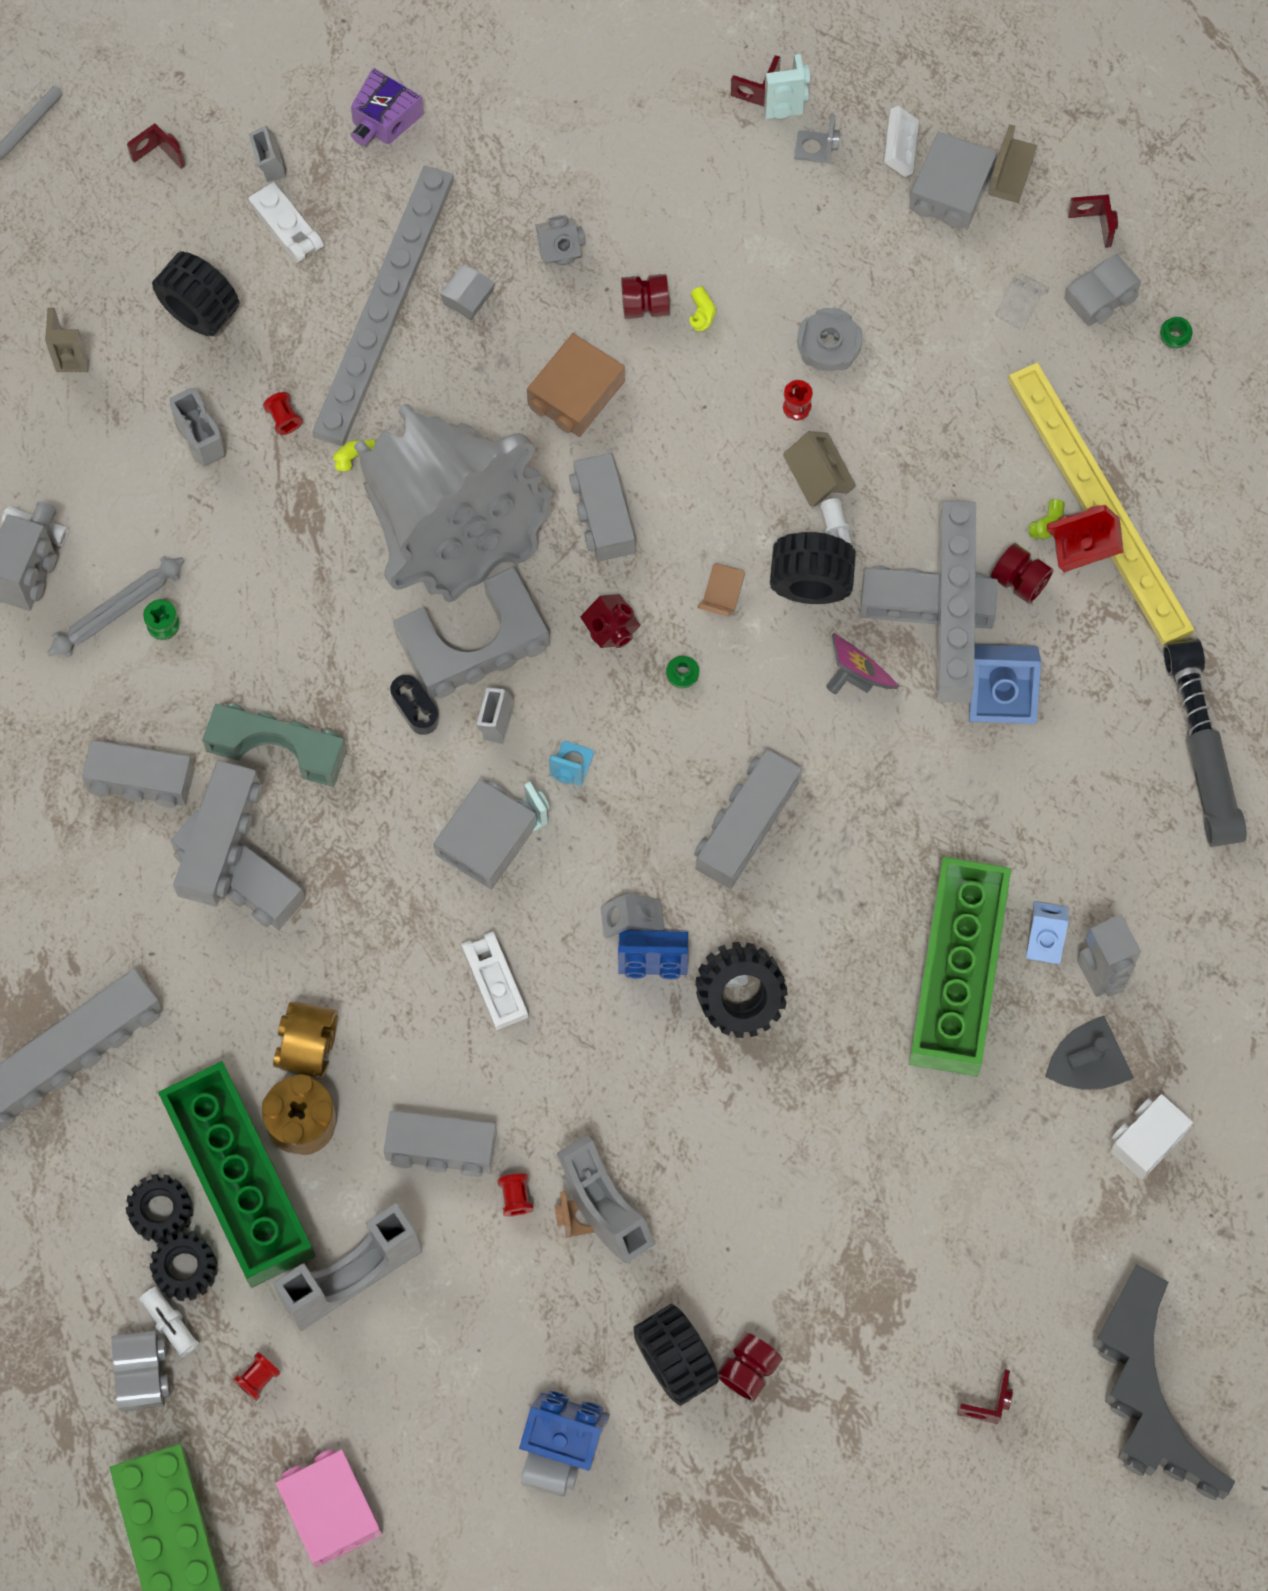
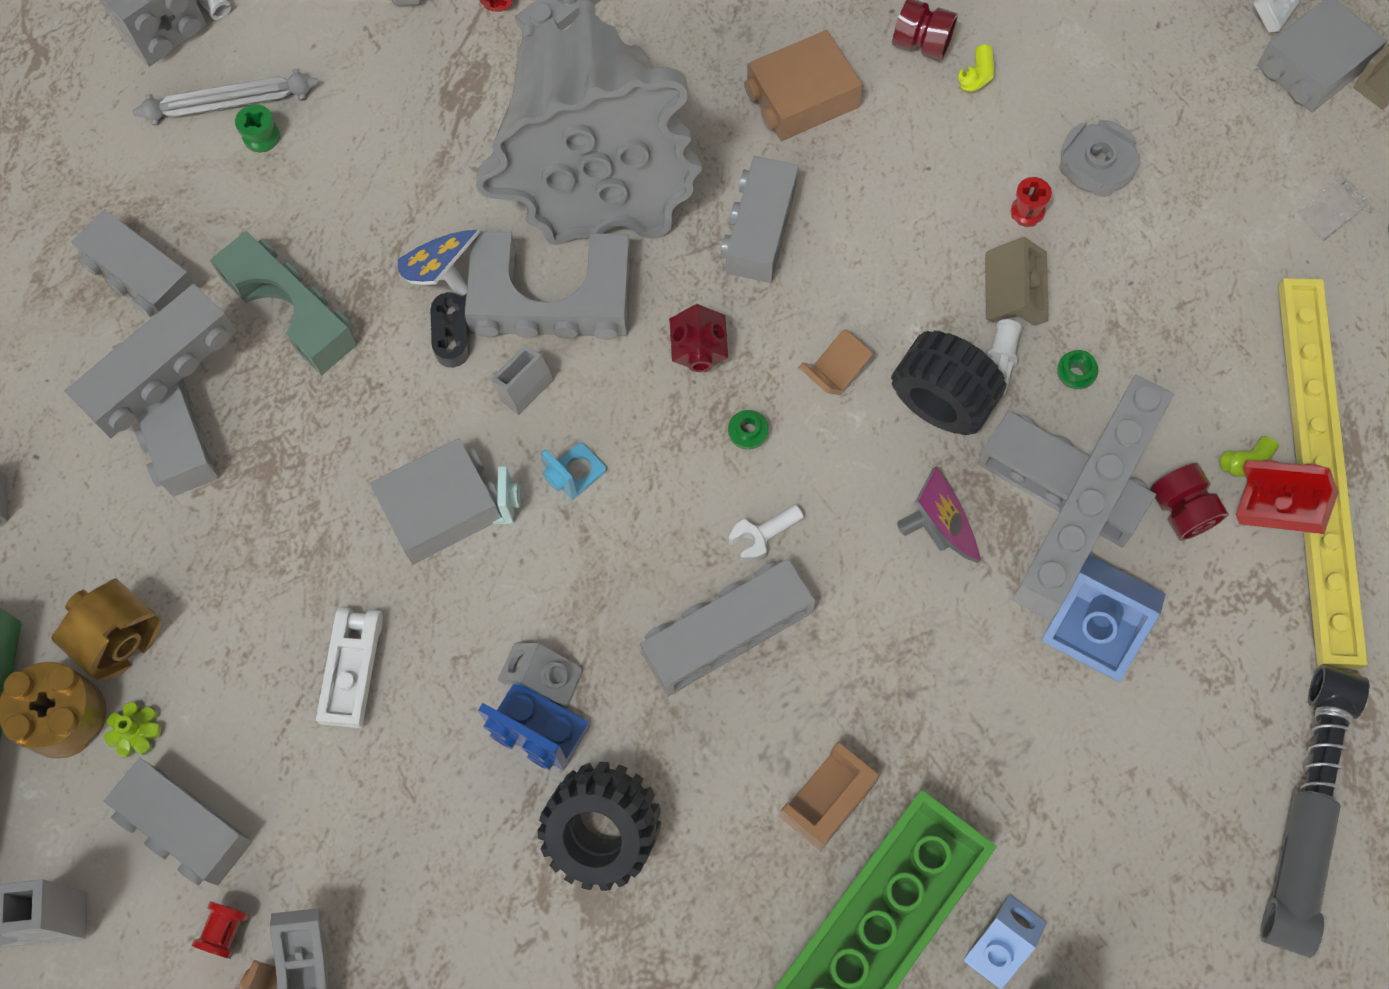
camera: 30 degrees right, 0 degrees up
(361, 1103) = (132, 730): none -> lime plant
(376, 656) = (436, 259): none -> shield
(734, 742) = (763, 533): none -> white bar
(881, 896) = (829, 796): none -> medium nougat panel
(899, 505) = (1077, 359): none -> green plate

